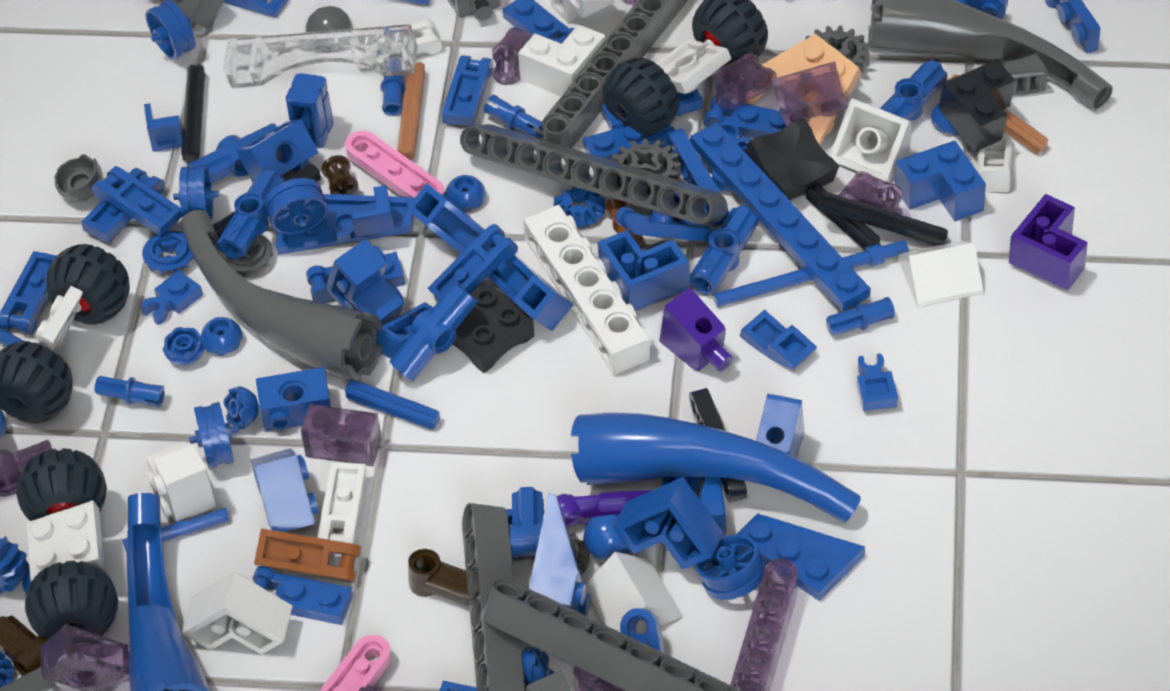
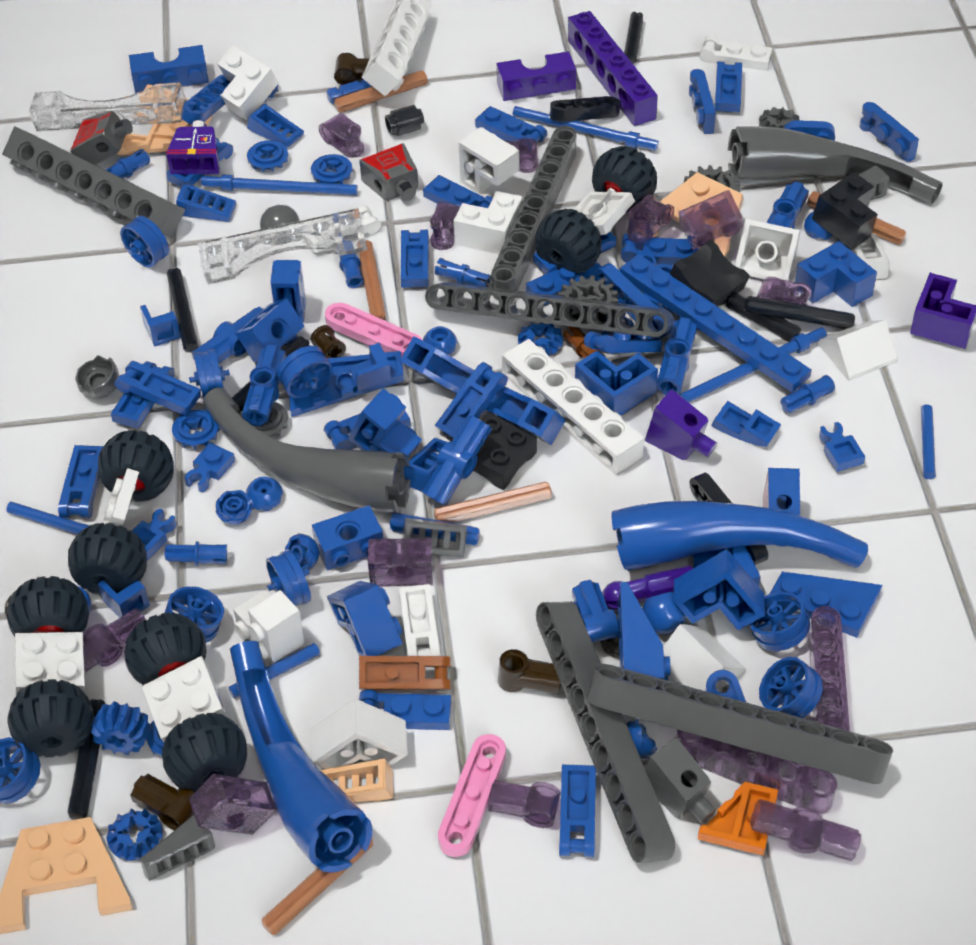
camera: 15 degrees left, 0 degrees up
(42, 428) = (126, 600): none -> blue panel
(87, 364) = (154, 534): none -> blue plate
(112, 443) = (198, 601): none -> blue wheel
(249, 665) = (370, 770): none -> light nougat slope
(363, 394) = (460, 542): none -> dark grey slope
(465, 385) = (494, 503): none -> axle
(715, 642) = (797, 695): none -> blue wheel
(981, 393) = (928, 442): none -> blue bar

